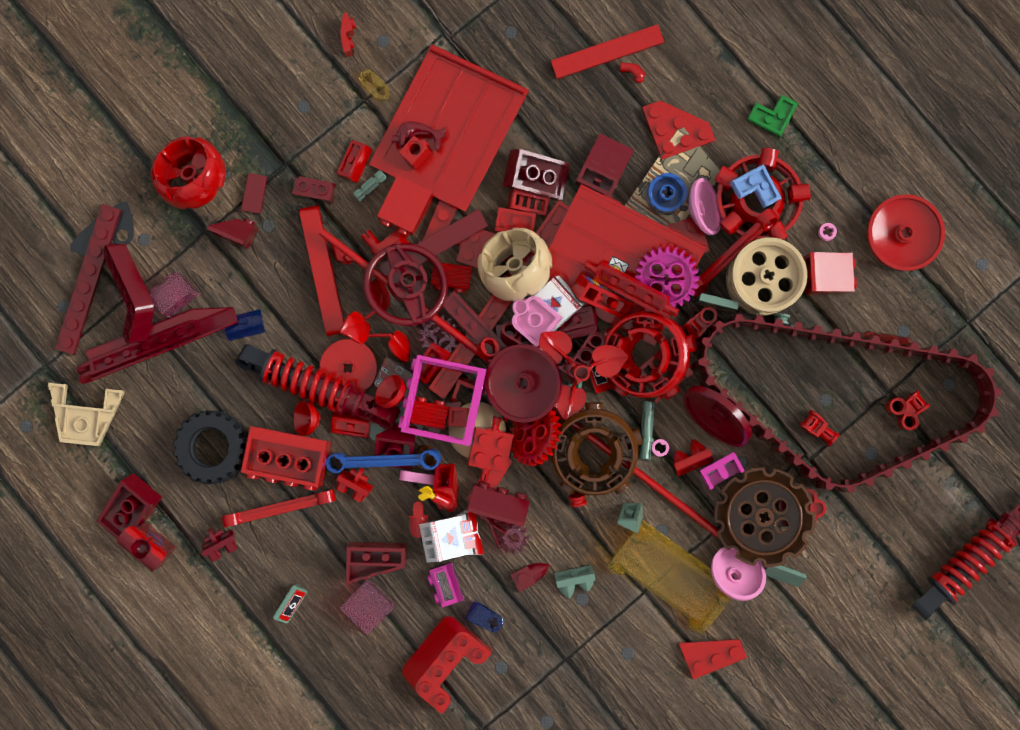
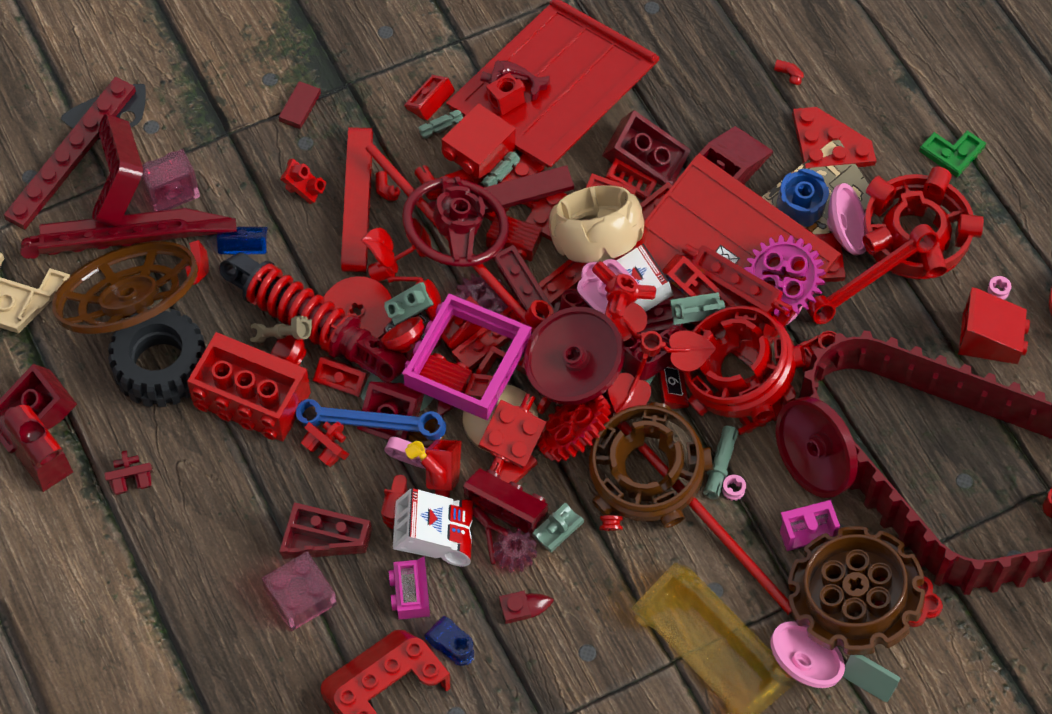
camera: 10 degrees right, 25 degrees down
(163, 401) = (128, 294): none -> reddish brown dish
(200, 187) = (229, 56): red wheel -> none
(219, 357) = (201, 257): none -> red slope
(236, 231) = (262, 134): dark red slope -> none
(277, 268) = (300, 180): none -> red hips
(278, 508) = (279, 449): red piece -> none
(290, 604) = (197, 567): slope -> none
(311, 406) = (299, 328): none -> dark tan piece
(314, 189) = (375, 108): dark red window -> none
(372, 88) = (479, 23): clear yellow beam -> none
(387, 366) = (408, 303): none -> sand green hips
(427, 221) = (501, 170): none -> sand green axle
(540, 514) = (557, 527): none -> sand green hips
(548, 330) = (621, 289): none -> red bush
(569, 578) = (572, 623): sand green tile -> none
(605, 317) = (695, 307): none -> sand green hinge
(607, 52) = (763, 47): red tile -> none
(631, 516) = (680, 554): sand green slope -> none
(699, 457) = (768, 512): red tile -> none
(717, 303) = (839, 322): sand green tile -> none
(748, 295) = (918, 288): tan wheel -> none
(758, 182) = (918, 198): medium blue tile -> none
(816, 426) = (947, 504): red connector -> none

